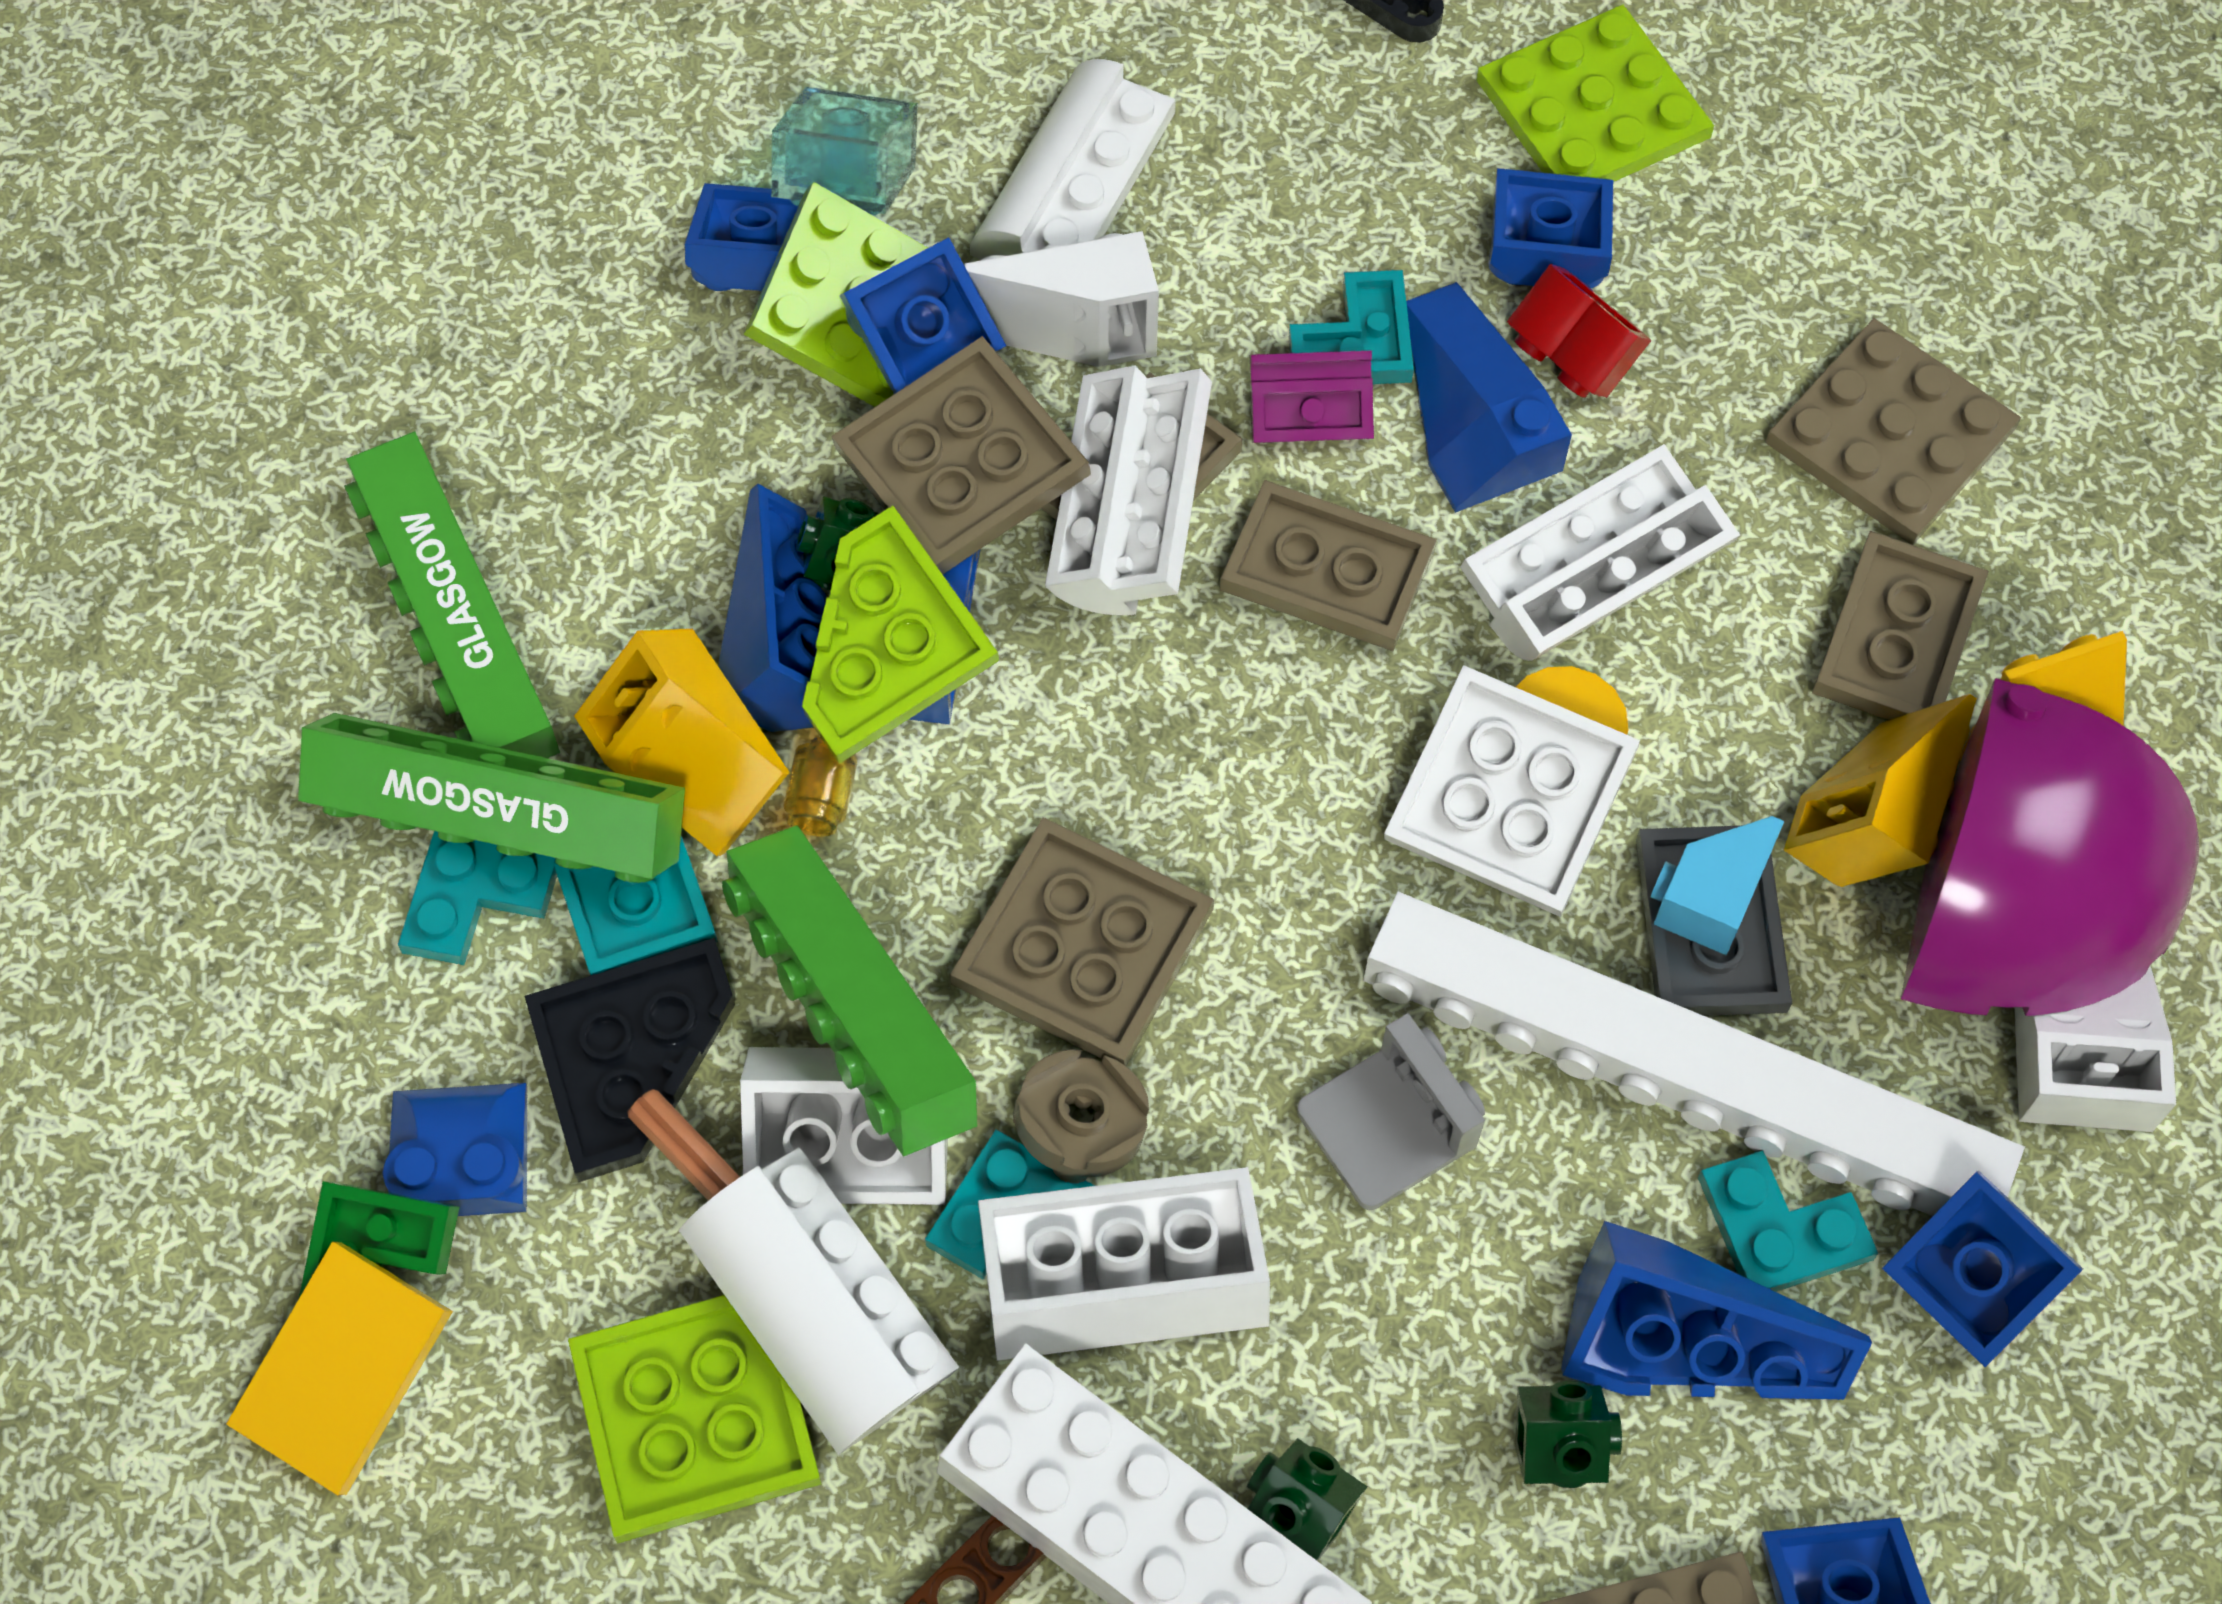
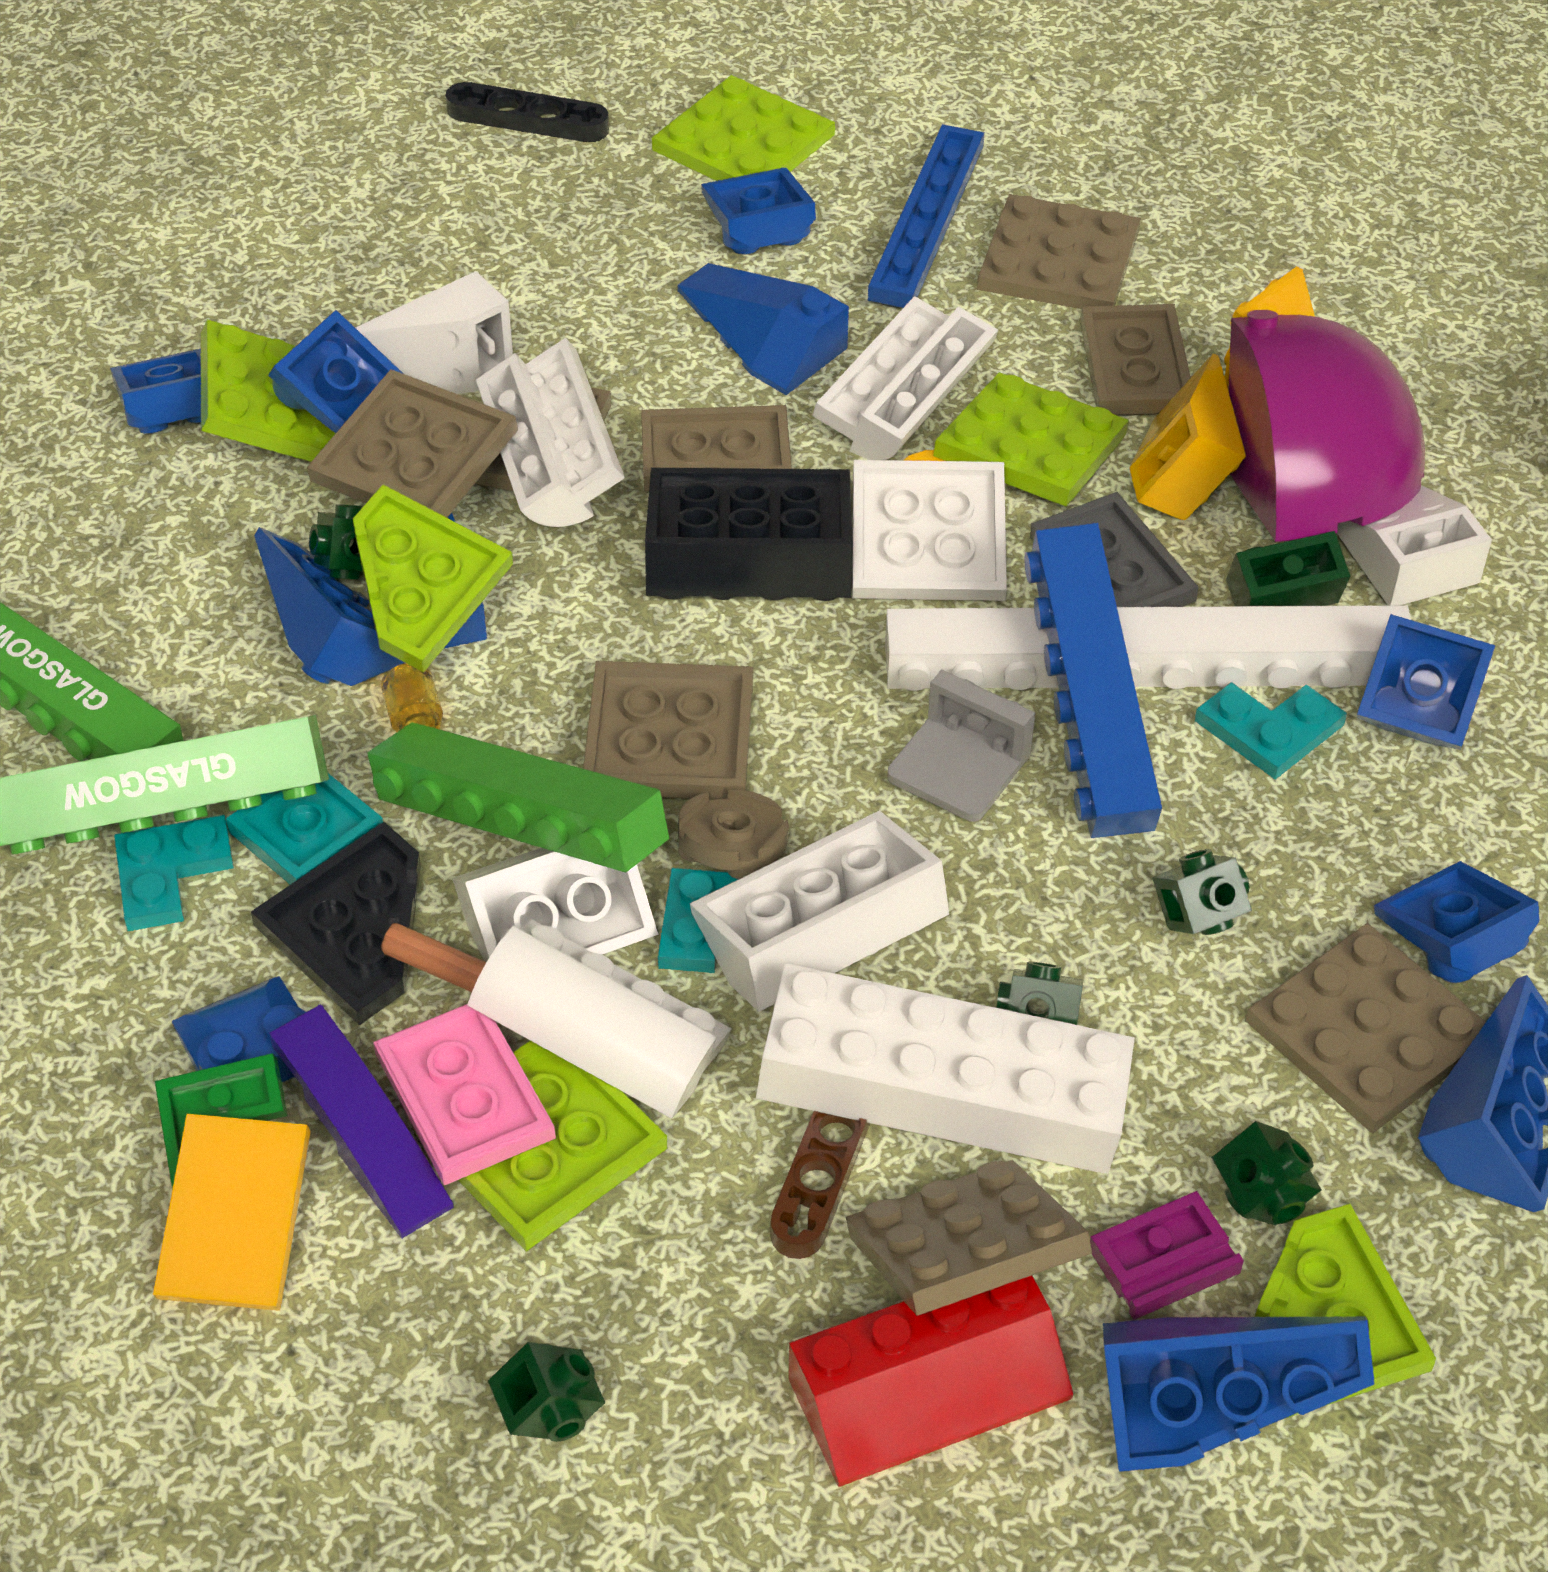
camera: 25 degrees left, 15 degrees down
(514, 1315) = (361, 1121): none -> dark purple slope
(631, 1331) = (463, 1092): none -> bright pink tile
(679, 722) = (278, 676): yellow slope -> none
(847, 145) = (220, 295): clear light blue brick -> none
(1077, 163) = (393, 258): white brick -> none
(1301, 707) = (749, 533): none -> black slope
(1311, 396) = (646, 352): magenta plate -> none
(1373, 323) = (664, 312): teal plate -> none
(1577, 333) = (814, 255): red brick -> none
(1580, 1099) = (1094, 682): none -> blue brick
(1677, 1319) = (1257, 799): blue wedge -> none
(1709, 700) = (1039, 434): none -> lime plate
(1715, 883) = (1117, 513): medium azure slope -> none
(1754, 313) = (926, 216): none -> blue plate
(1902, 1038) = (1290, 573): none -> dark green brick

